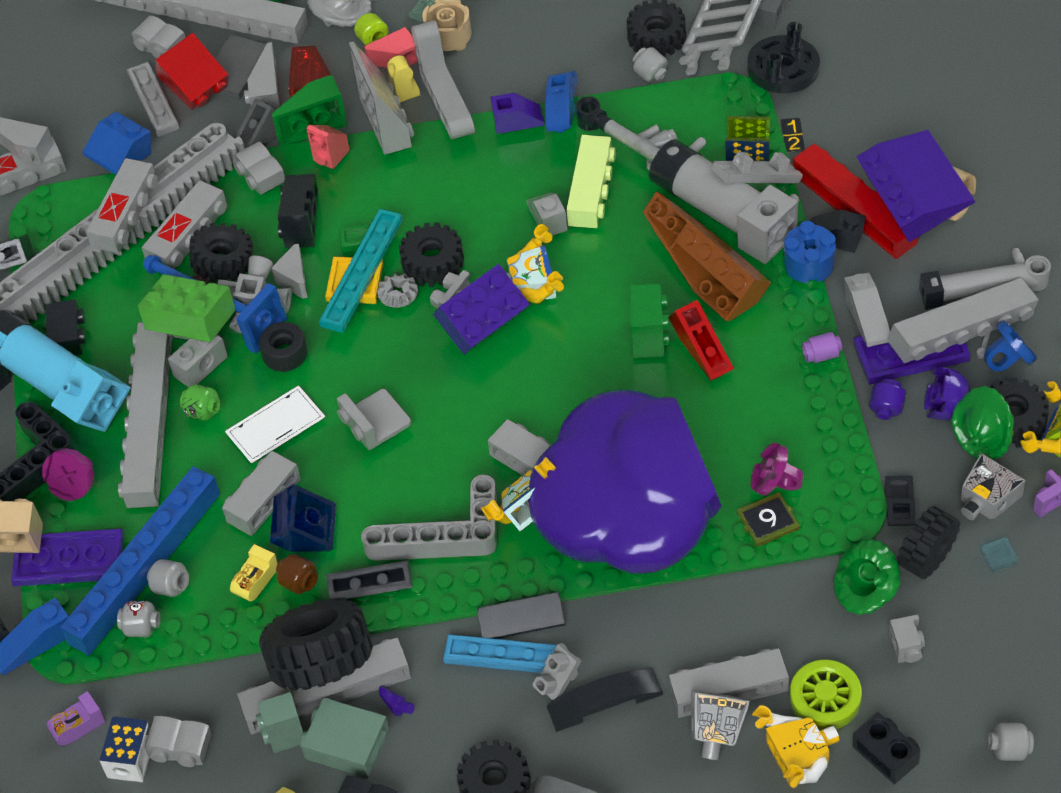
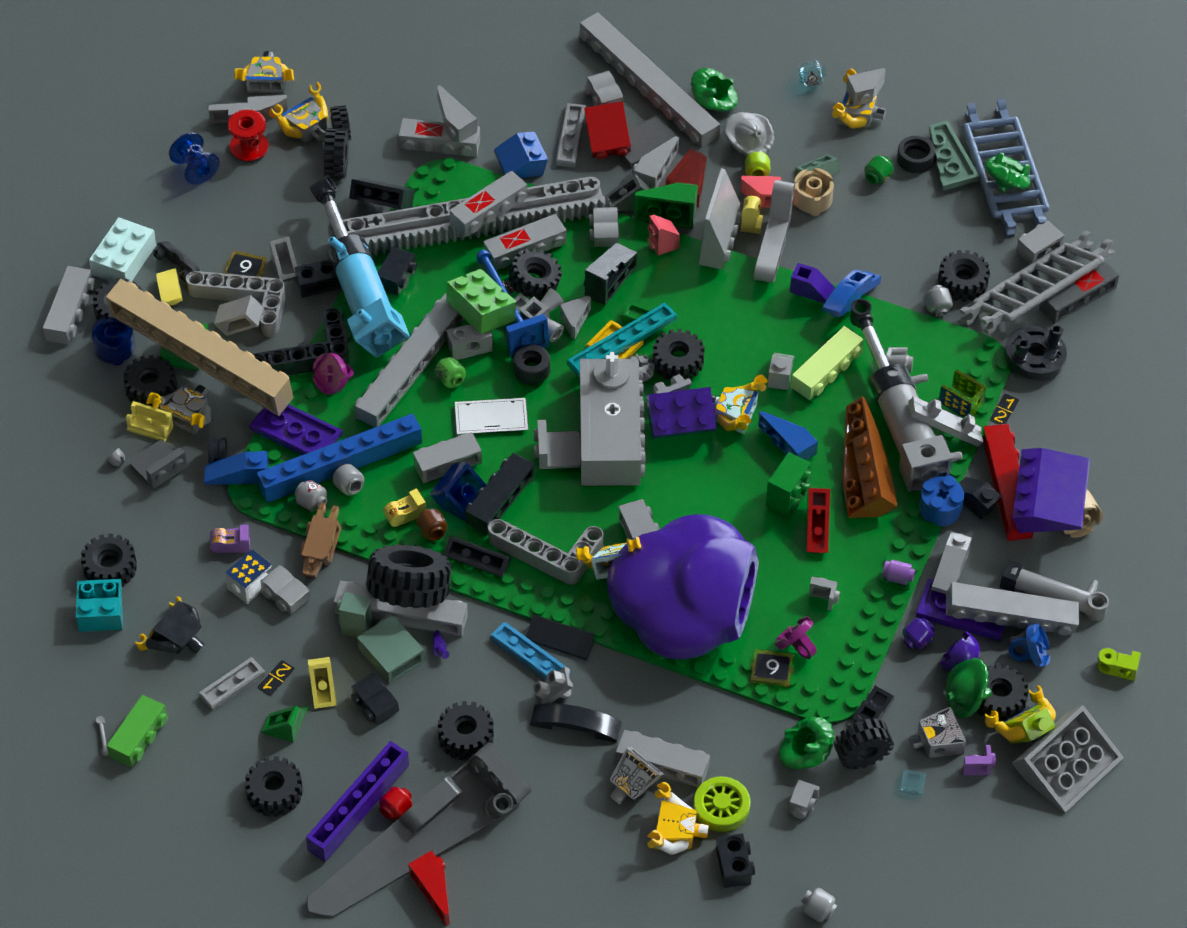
camera: 25 degrees right, 0 degrees up
(183, 663) = (320, 541): none -> medium nougat hinge
(347, 499) = (499, 492): none -> black brick
(414, 358) = (611, 421): none -> light grey piece
(605, 274) = (788, 436): none -> blue slope
(763, 406) = (824, 589): none -> light grey bracket

